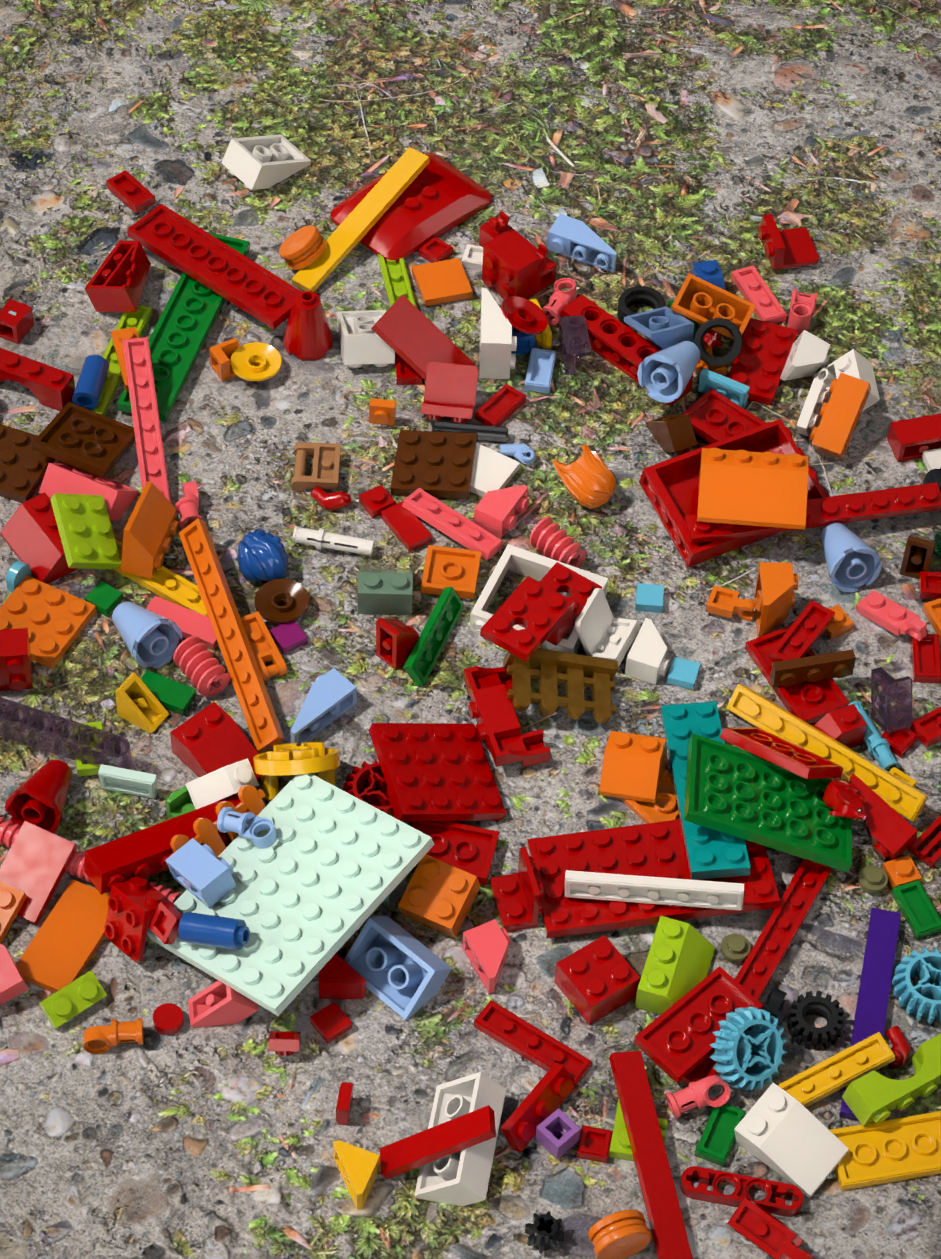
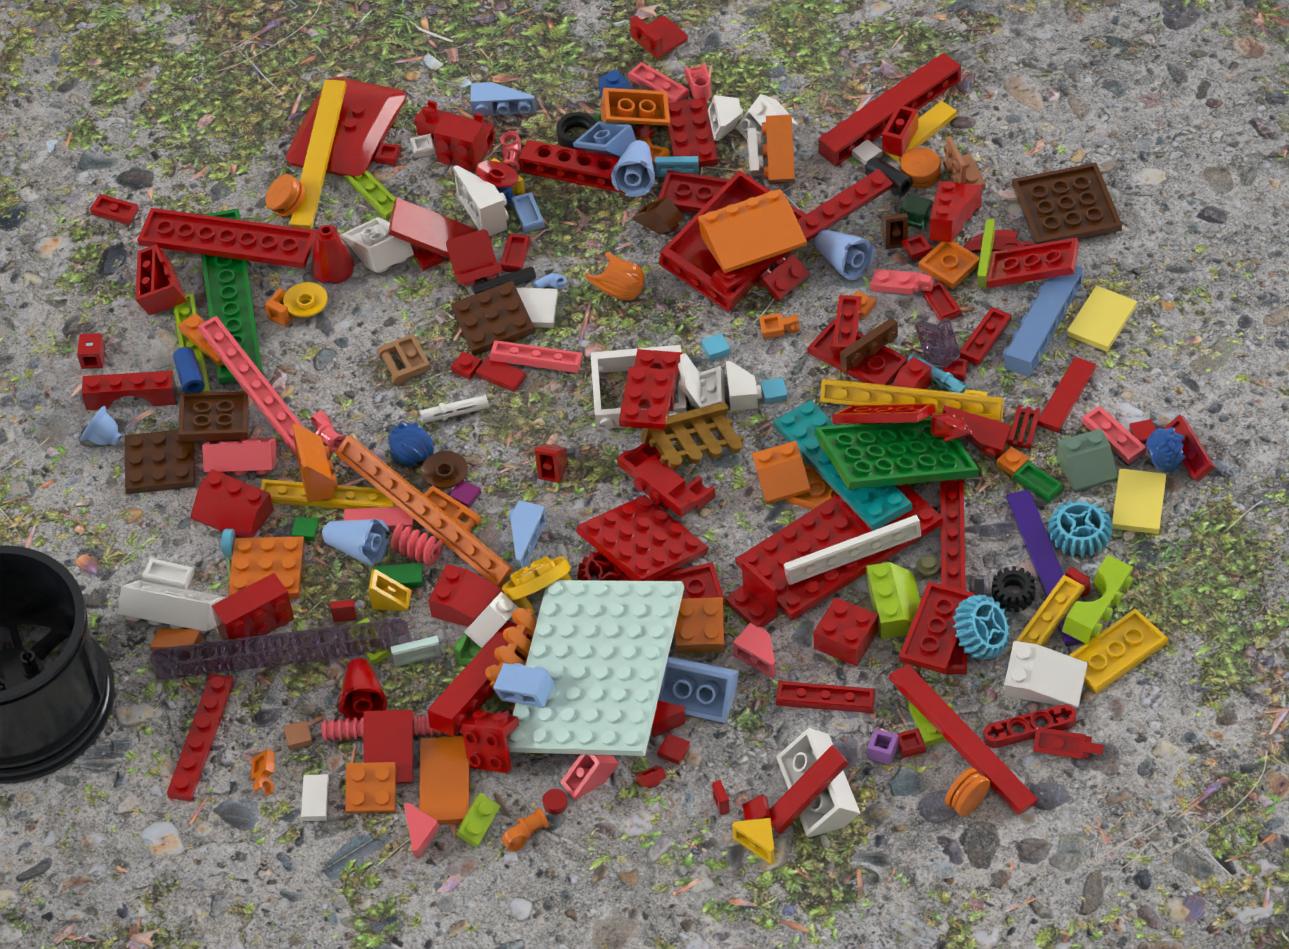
camera: 20 degrees left, 0 degrees up
(83, 703) = (343, 610): none -> red tile
(85, 531) = (265, 483): lime plate -> none
(165, 923) = (521, 731): red plate -> none
(213, 931) = (562, 719): blue brick -> none
(252, 824) = (537, 637): light blue connector -> none
(263, 160) = (206, 139): white slope -> none
(331, 501) = (431, 380): red arm -> none
(375, 1137) = (756, 808): none -> red tile
(382, 411) = (428, 295): orange plate -> none
(385, 591) = (517, 428): sand green slope -> none
(434, 636) = (576, 444): green tile -> none
(442, 282) = (408, 176): orange tile -> none
(451, 568) = (557, 392): orange plate -> none
(500, 509) = (565, 331): coral slope -> none
(537, 1106) = (858, 735): red plate -> none
(545, 1224) = (913, 815): black gear -> none
(556, 544) = (624, 339): coral piece -> none
(573, 341) = (542, 179): bracket -> none
(697, 1096) = (963, 676): coral connector -> none
(719, 1134) = (992, 695): green tile -> none
(737, 338) = (639, 130): black tyre -> none
(772, 550) = (784, 277): none -> red bracket
(774, 595) = (808, 303): orange slope -> none
(872, 879) = (995, 475): olive plate -> none

